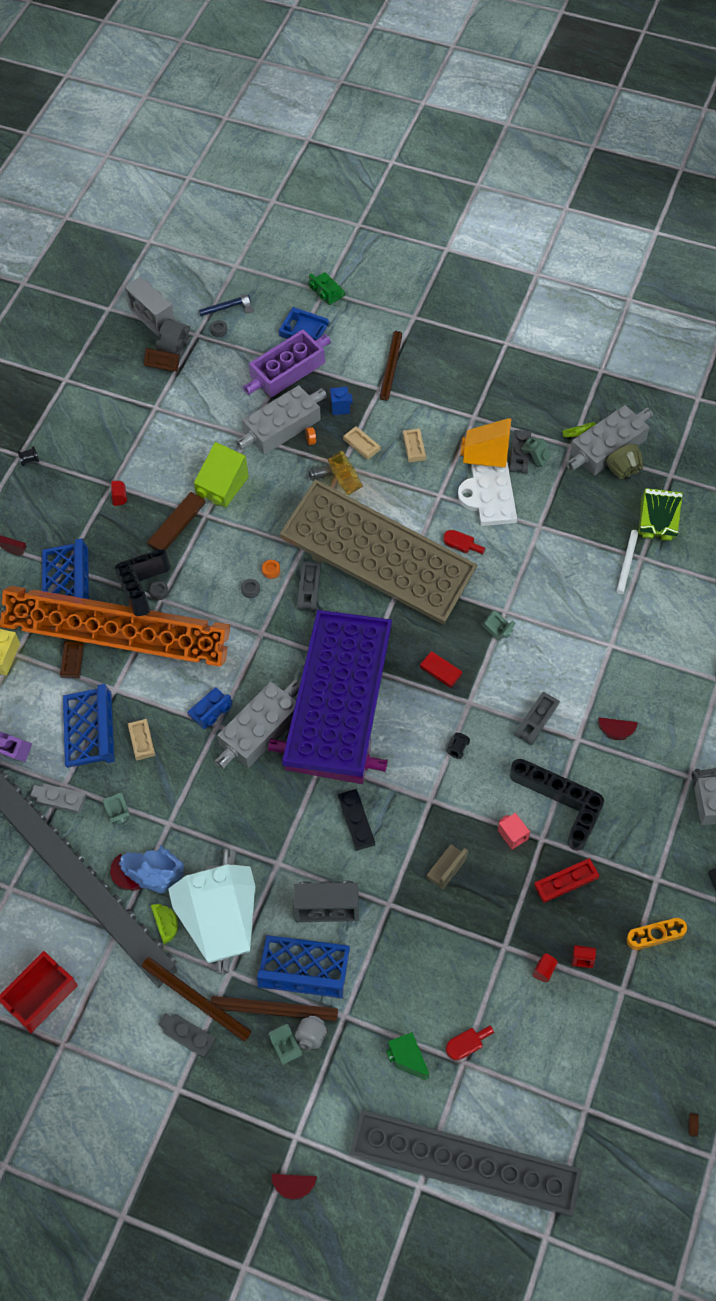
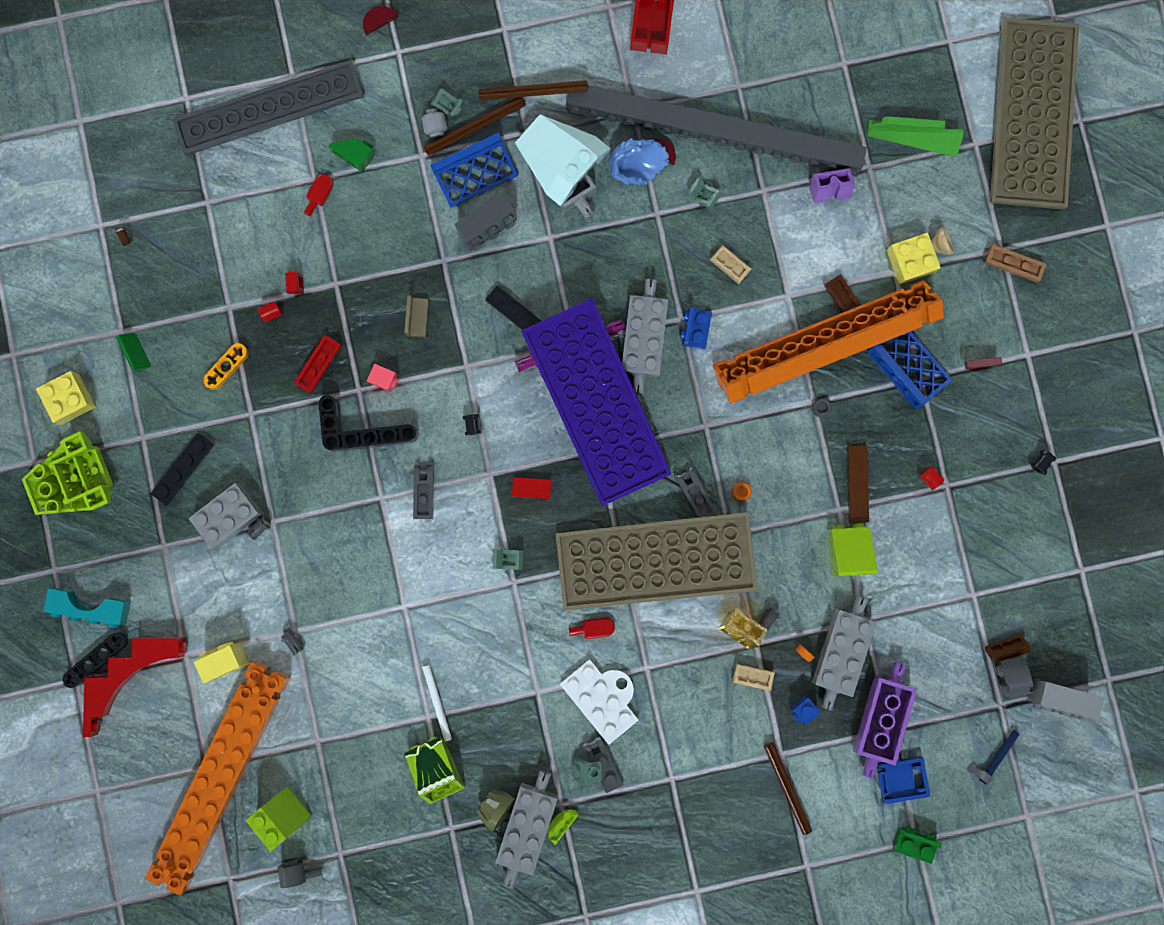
camera: 145 degrees right, 25 degrees up
(58, 798) = (758, 176): light grey hinge -> none
(105, 726) = (773, 260): blue fence -> none
(138, 569) = (856, 398): black beam -> none
(166, 922) = (604, 135): lime tile -> none
(187, 1034) = (524, 68): dark grey hinge -> none
(218, 328) = (983, 725): dark grey tile -> none
(250, 588) = (745, 461): dark grey tile -> none
(414, 445) = (703, 706): tan plate -> none
(487, 444) = (633, 743): light orange slope -> none
(617, 729) = (352, 526): dark red tile -> none

